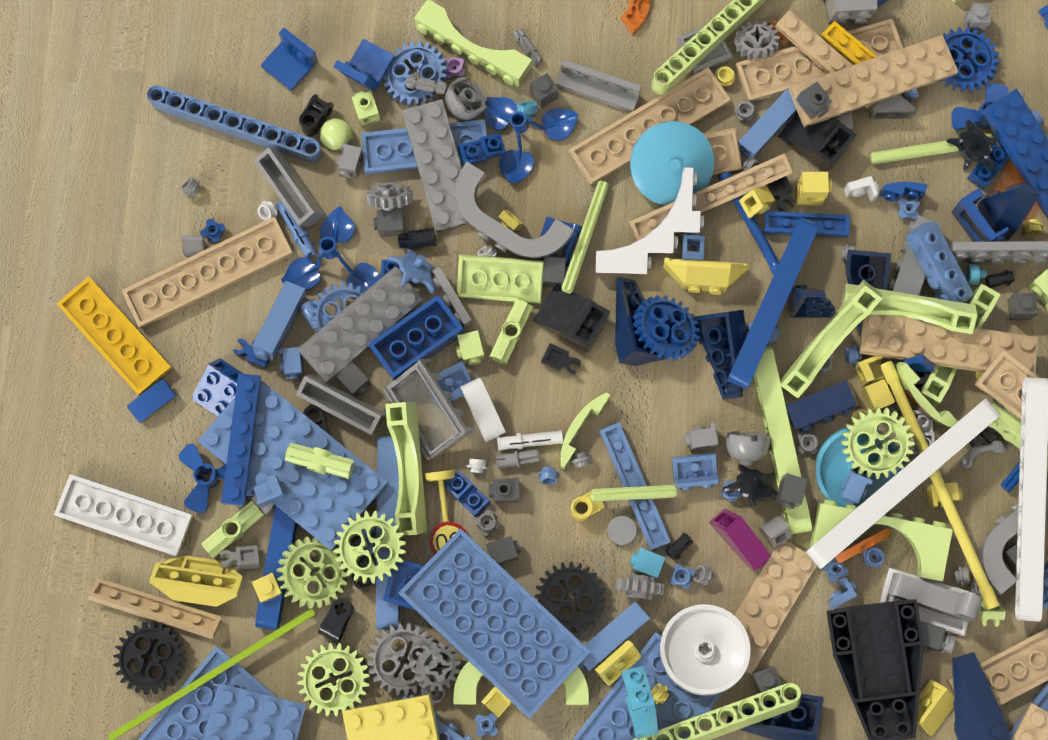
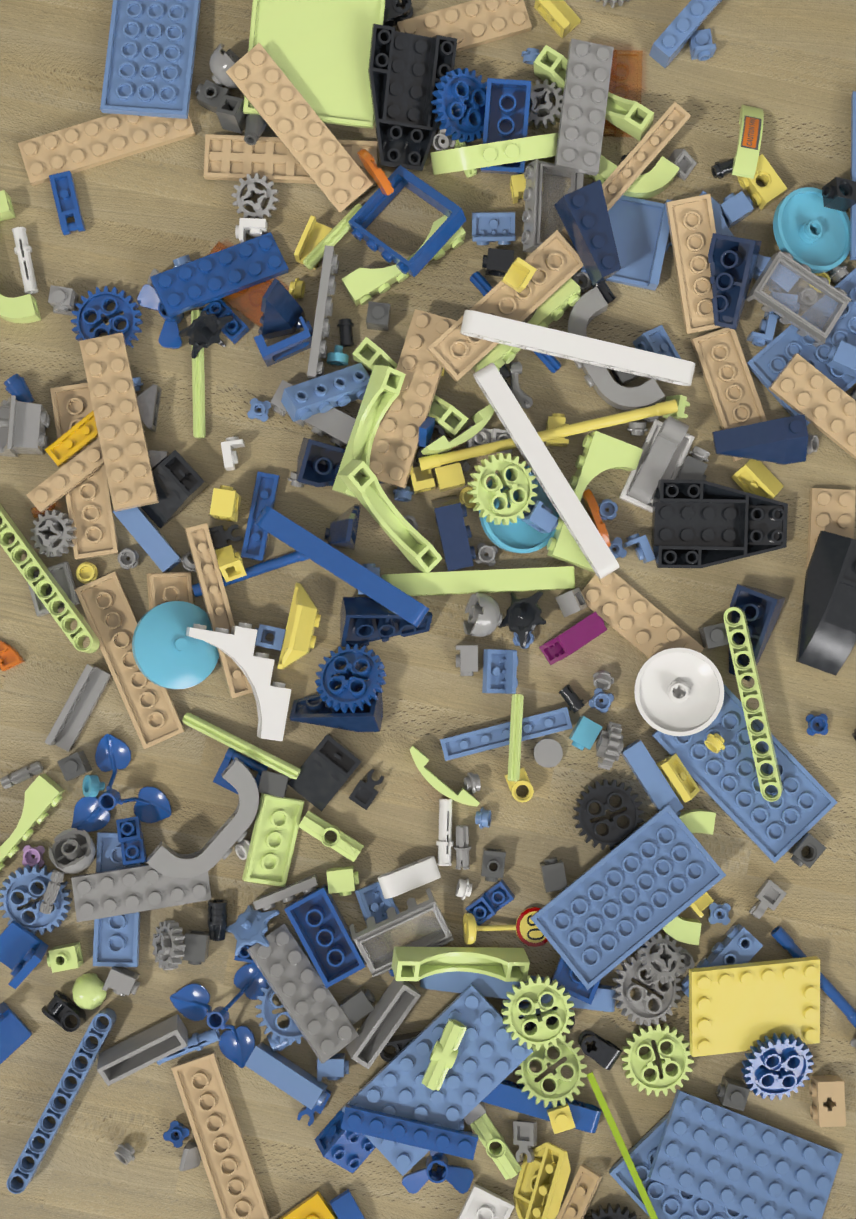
camera: 90 degrees left, 10 degrees up
(267, 210) = (163, 1074): white plate -> none
(269, 491) = (467, 1108): medium blue panel -> none
(487, 516) = (520, 892): light grey plate -> none
(510, 220) = (212, 820): light yellow plate -> none
(640, 702) = (725, 765): medium azure panel -> none
(791, 491) = (537, 581): dark grey brick -> none
(814, 101) = (135, 488): dark grey brick -> none
(894, 191) = (239, 419): blue slope -> none

